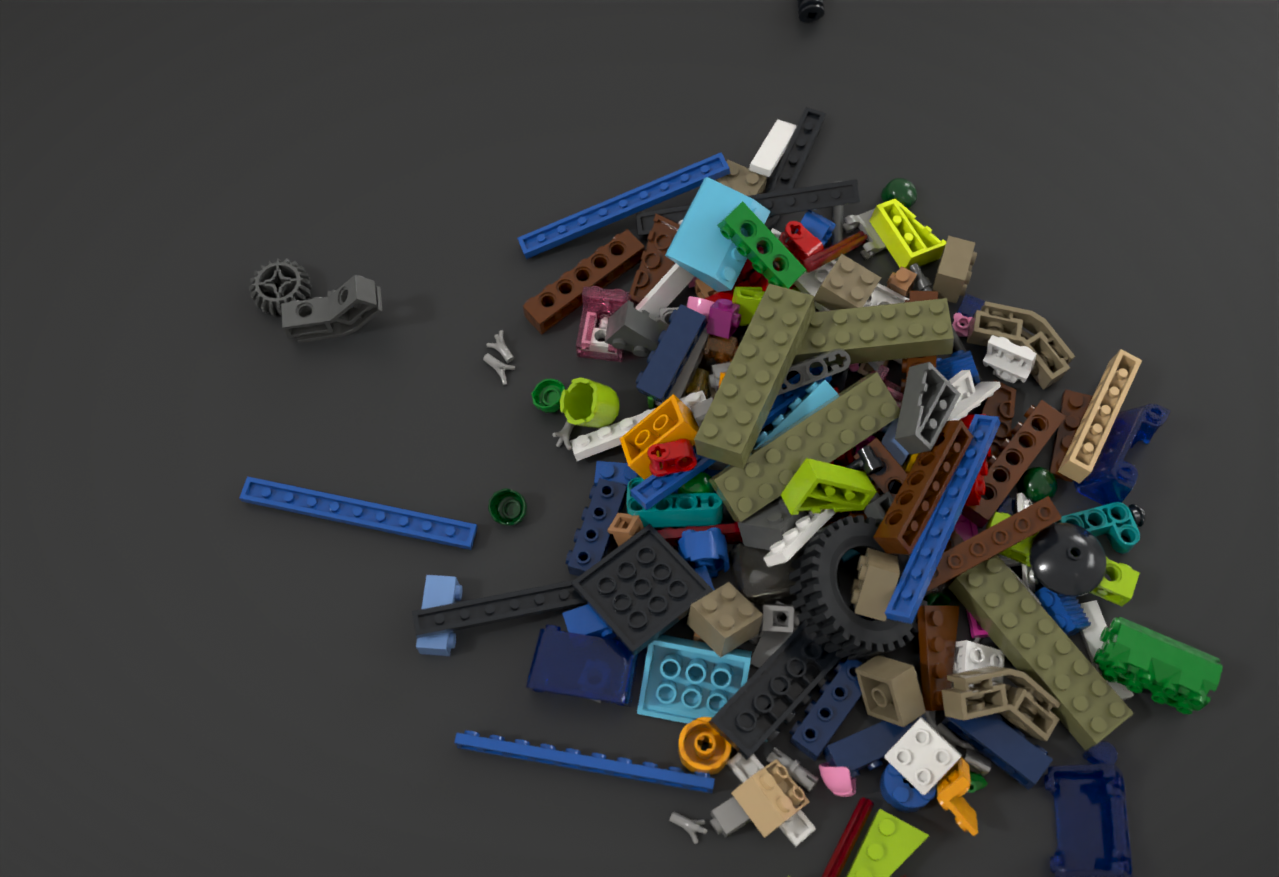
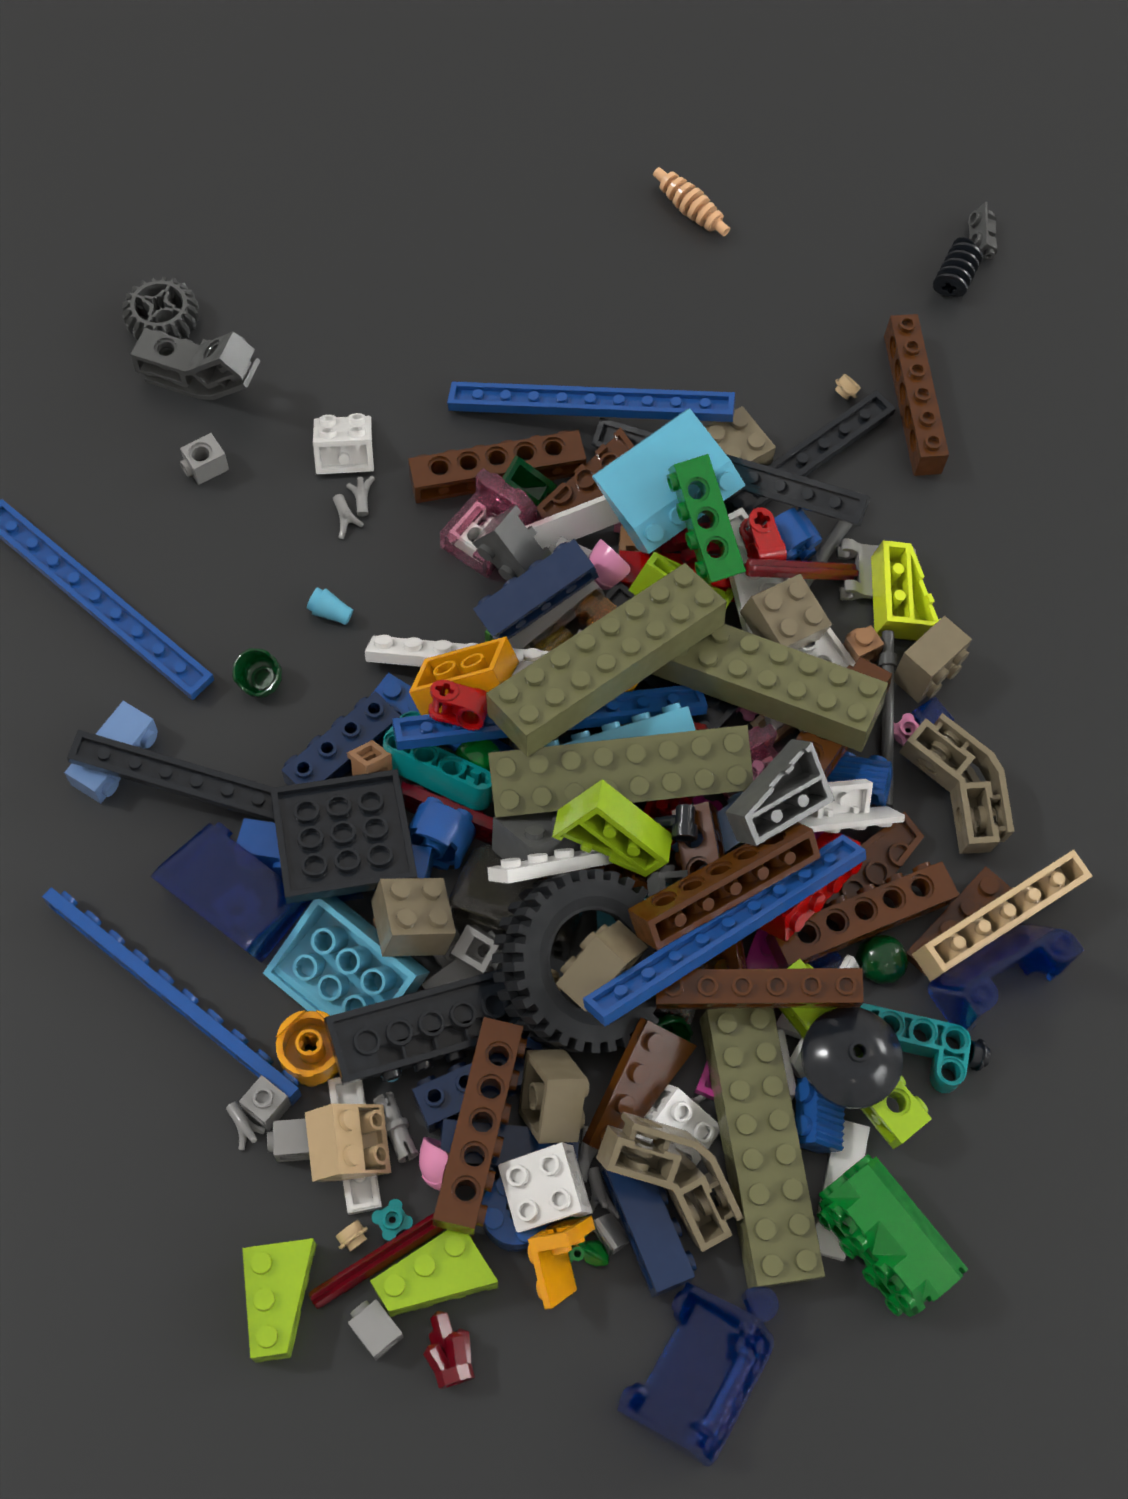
camera: 20 degrees right, 0 degrees up
(374, 368) = (203, 448): none -> light grey brick
(468, 317) = (343, 444): none -> white bracket
(527, 436) = (328, 606): none -> medium azure cone
(547, 395) = (379, 574): green hair -> none
(564, 435) = (372, 624): light grey bar -> none
(589, 403) = (414, 604): lime cylinder -> none
(604, 35) = (691, 201): none -> light nougat piece
(614, 279) = (529, 480): none -> dark green slope
(696, 801) = (265, 1102): none -> light grey brick
(723, 318) = (617, 580): magenta brick -> none
(772, 148) = (804, 418): white tile -> none
(785, 114) = (847, 387): none -> tan plate
(805, 375) = (671, 689): dark grey beam -> none
(809, 859) = (352, 1236): none -> tan plate
(833, 97) = (916, 395): none -> reddish brown brick
(836, 832) = (382, 1217): none -> teal plate
(870, 803) = (451, 1211): none -> reddish brown brick
(901, 190) = (929, 542): dark green hair -> none
(1009, 360) = (934, 798): white slope -> none

